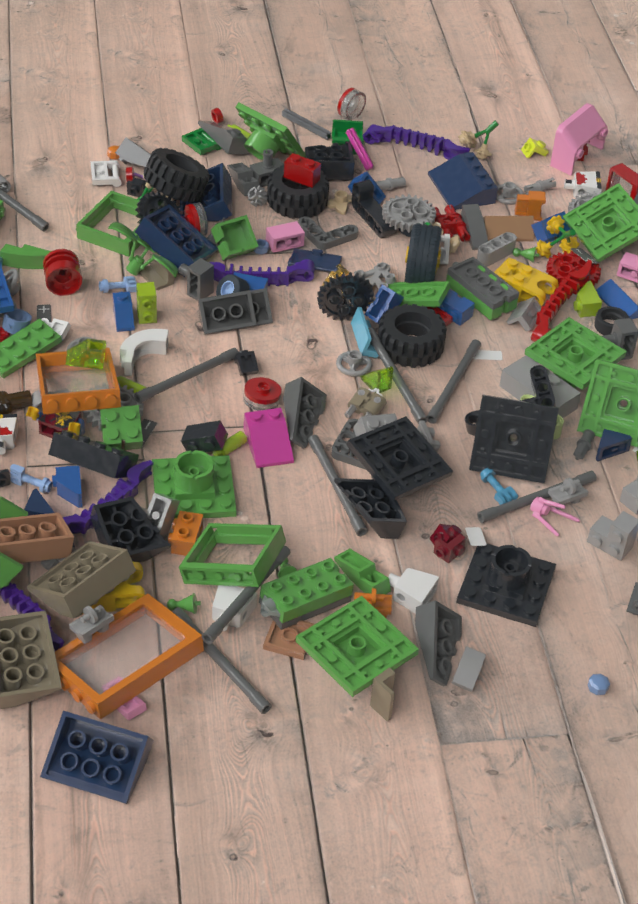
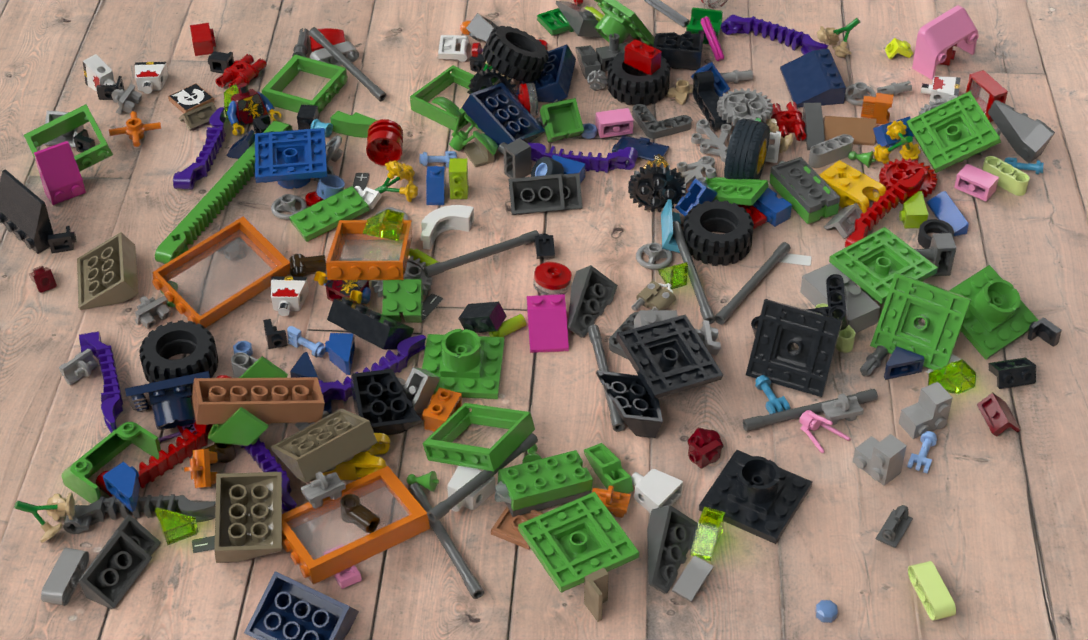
camera: 15 degrees right, 0 degrees up
(84, 301) = (402, 172): none -> yellow plant
(128, 642) = (354, 512): none -> dark brown piece
(398, 259) = (703, 127): none -> light grey plant
(473, 624) = (708, 533): none -> clear neon green slope
(475, 536) = (734, 444): white sticker -> none
(585, 256) = (921, 163): dark grey sticker -> none

